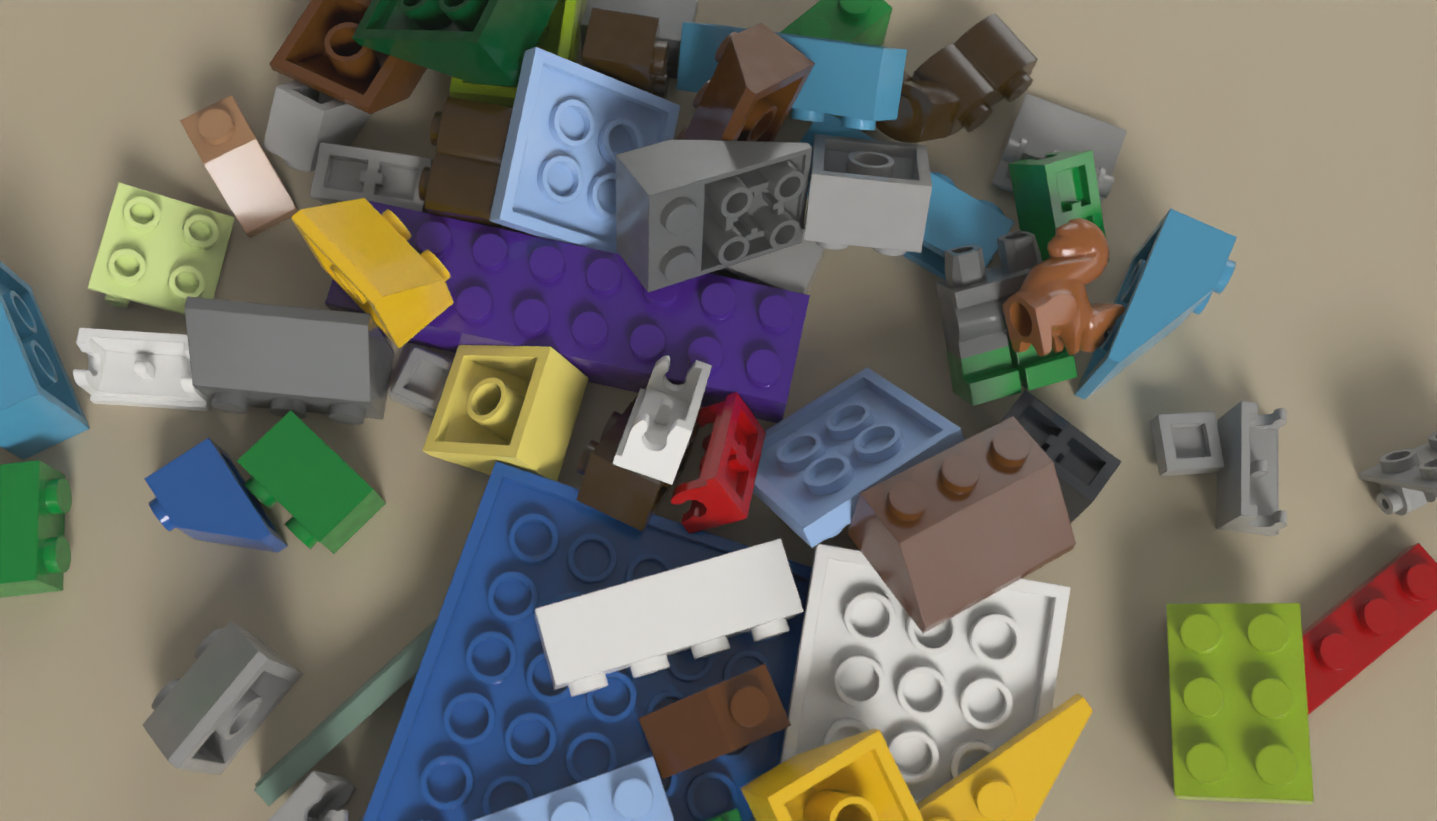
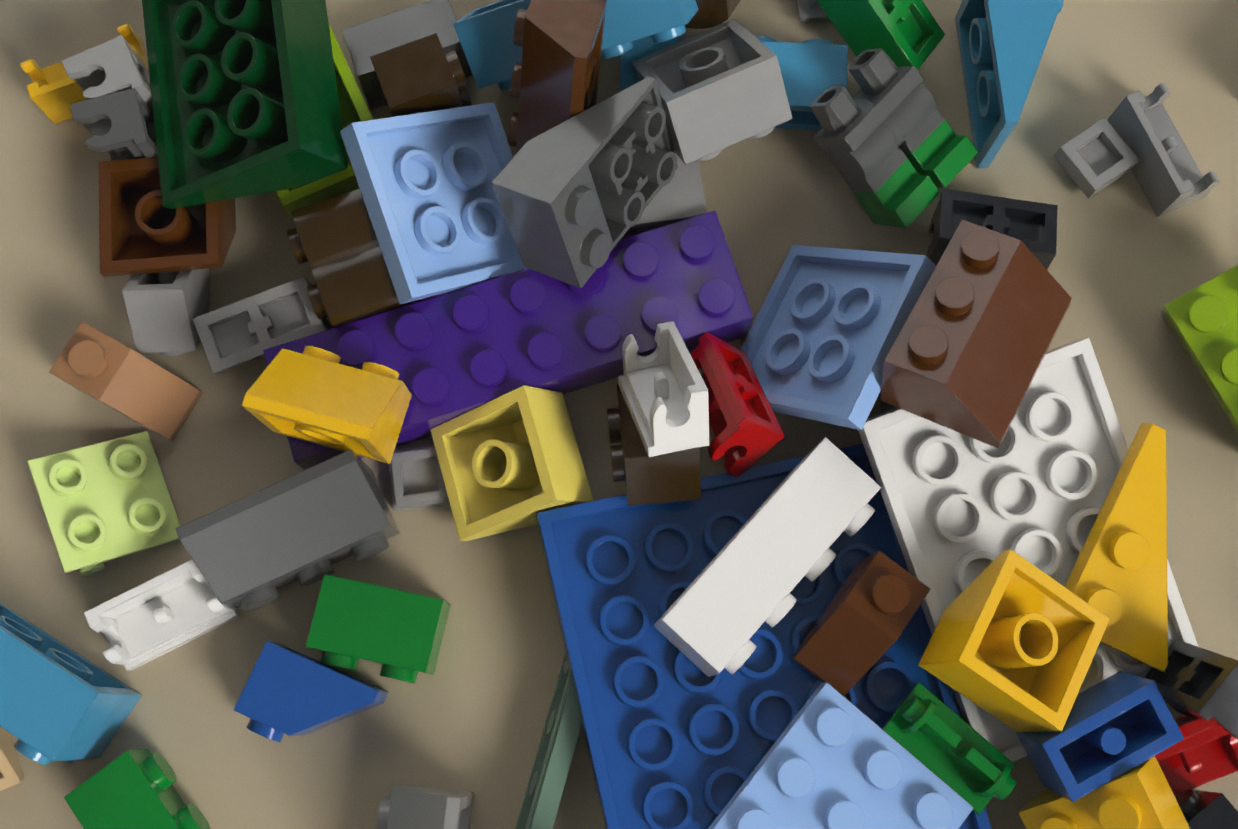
camera: 25 degrees left, 5 degrees up
(1053, 299) = (931, 93): dark orange animal -> none

